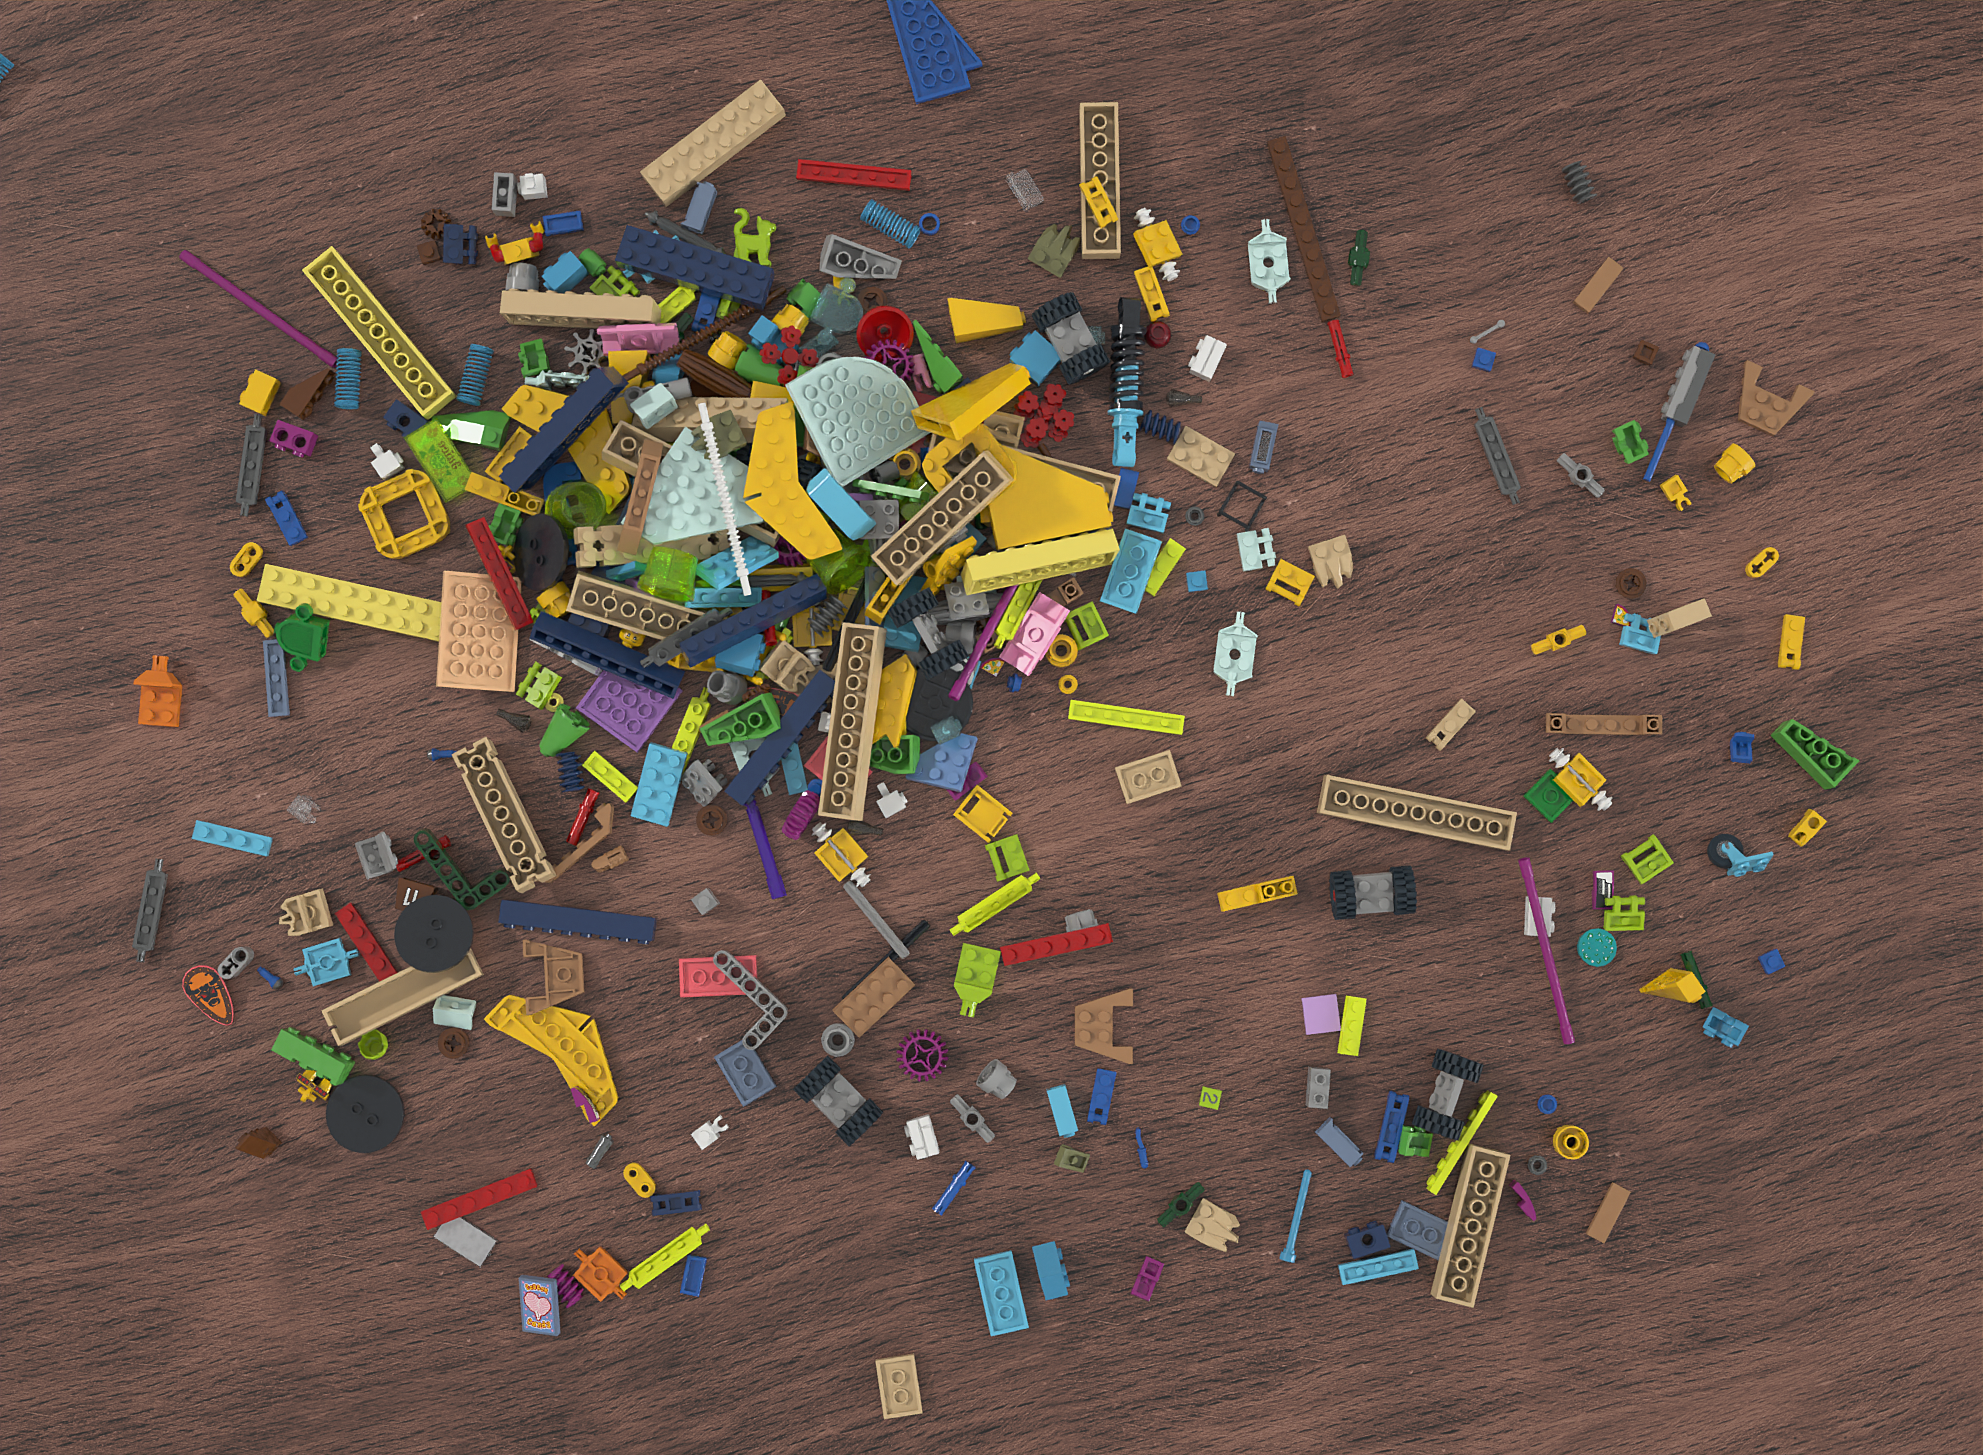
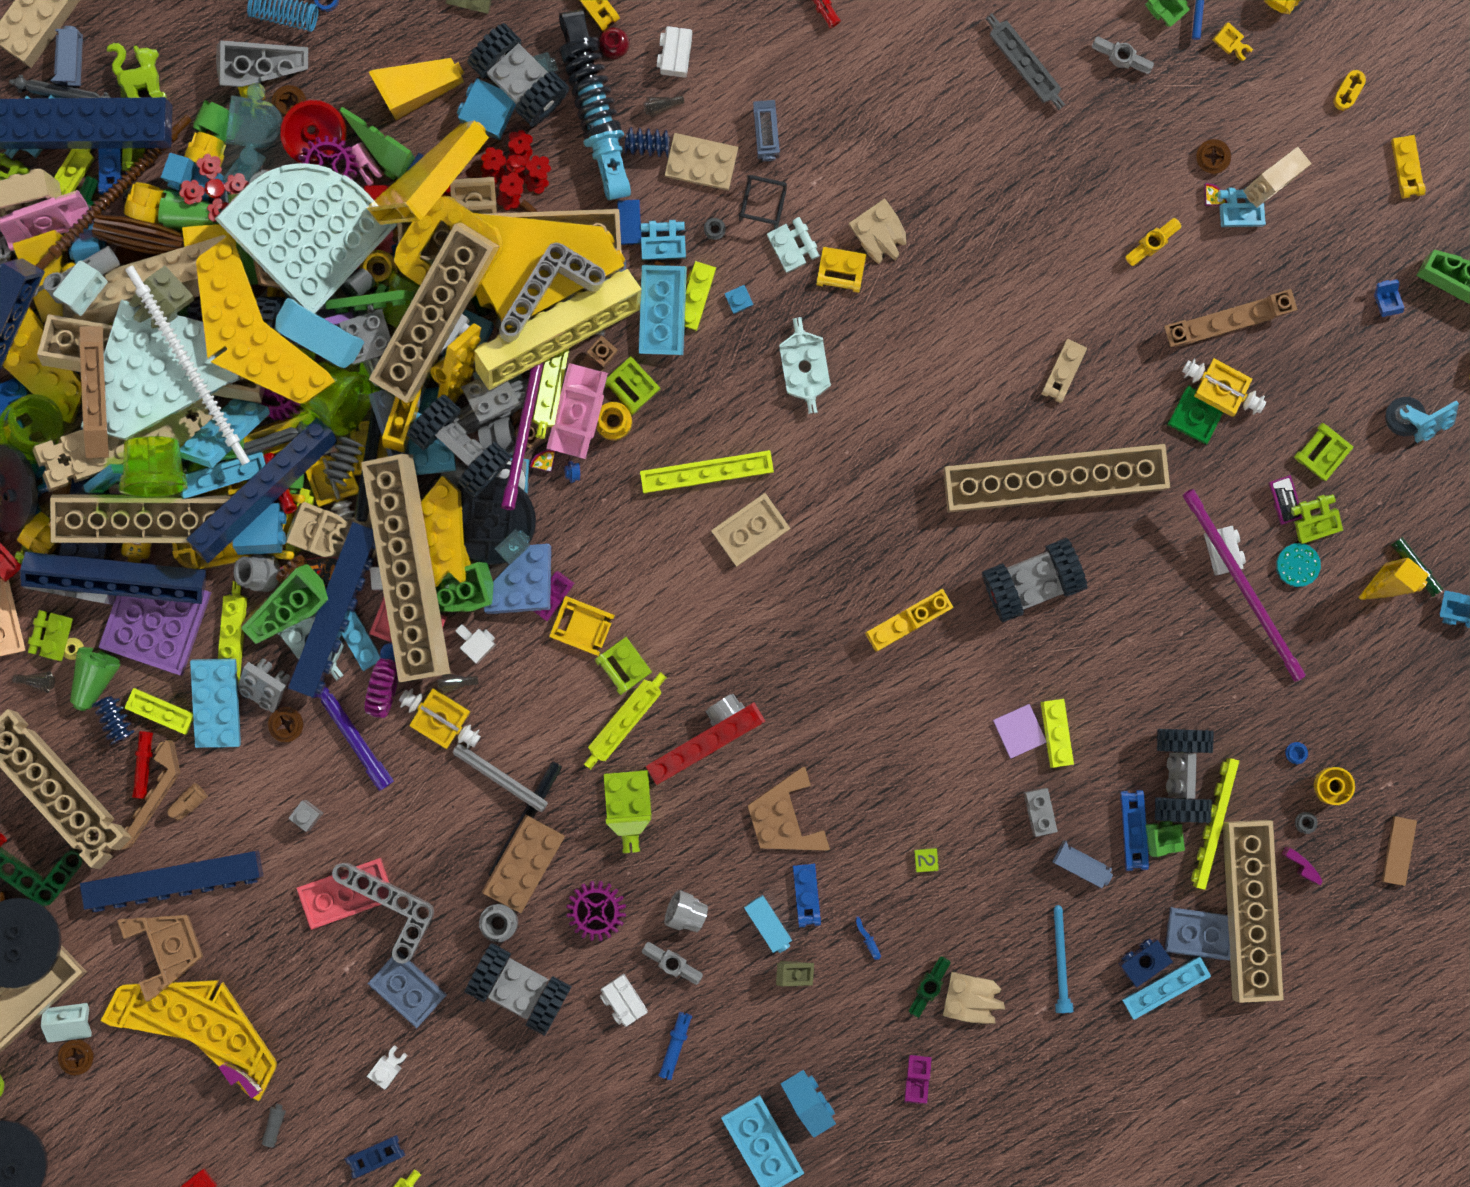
camera: 15 degrees left, 0 degrees up
(641, 1178) = (327, 1143): yellow plate -> none
(670, 646) = (178, 547): dark grey plate -> none
(1038, 521) = (542, 284): none -> light grey beam
(1067, 678) = (632, 448): yellow plate -> none

